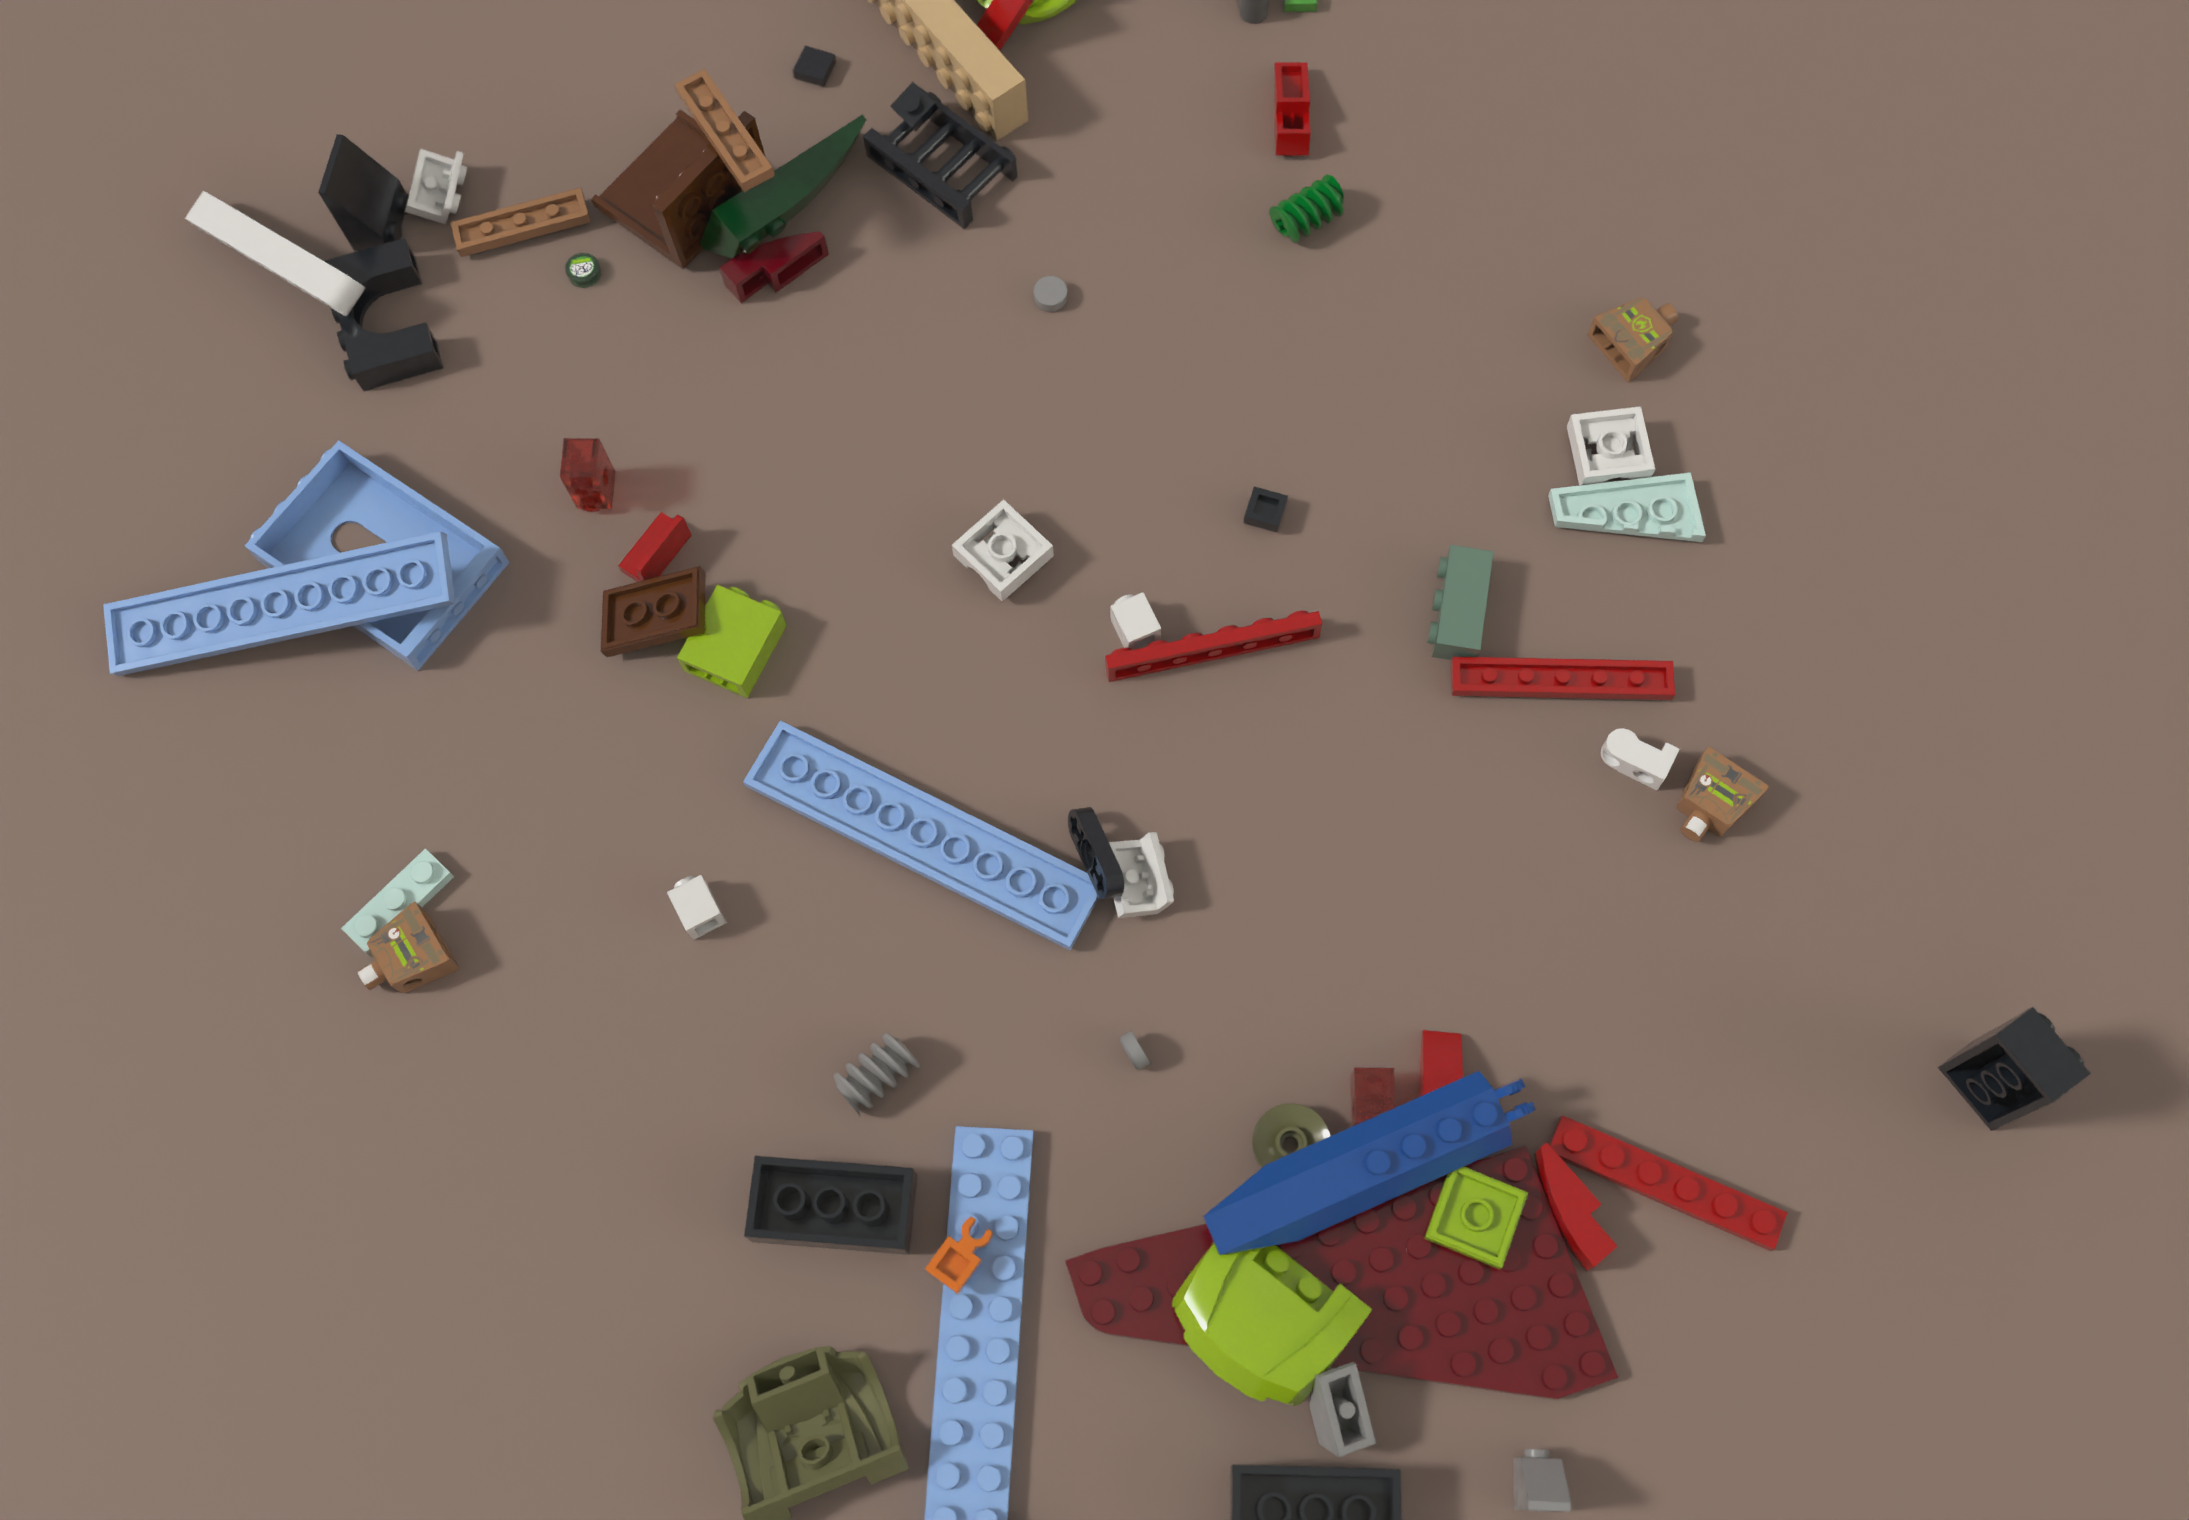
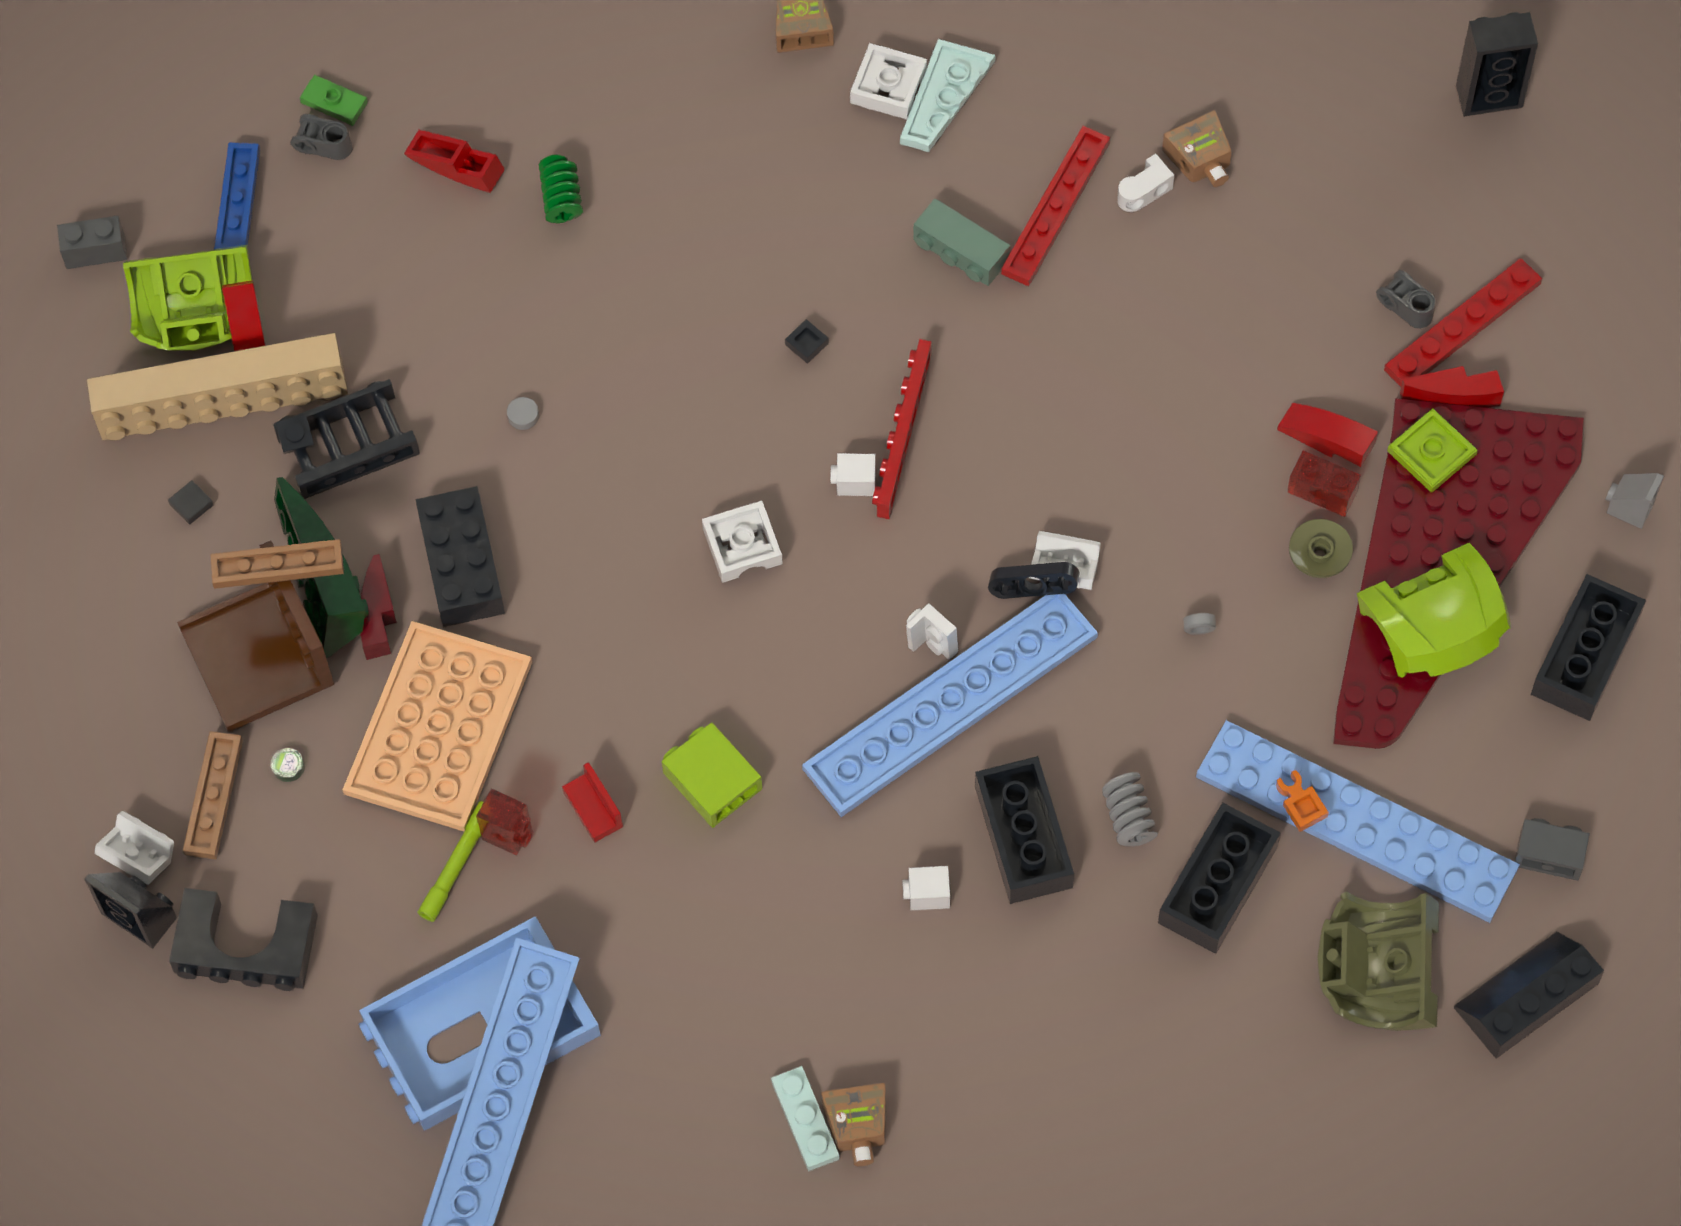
camera: 65 degrees left, 5 degrees down
(275, 253) = (137, 1001): white beam -> none
(503, 457) = (439, 892): none -> lime piece
(653, 611) = (656, 821): reddish brown tile -> none
(677, 374) = (437, 726): none -> light nougat plate
(799, 972) = (1024, 830): none -> black brick
(862, 308) = (460, 556): none -> black brick
(983, 776) = (933, 627): none -> white bracket
(1341, 1411) = (1530, 597): light grey slope -> none
(1366, 1165) = (1366, 494): blue hinge -> none
(1658, 1097) = (1405, 295): none -> dark grey piece

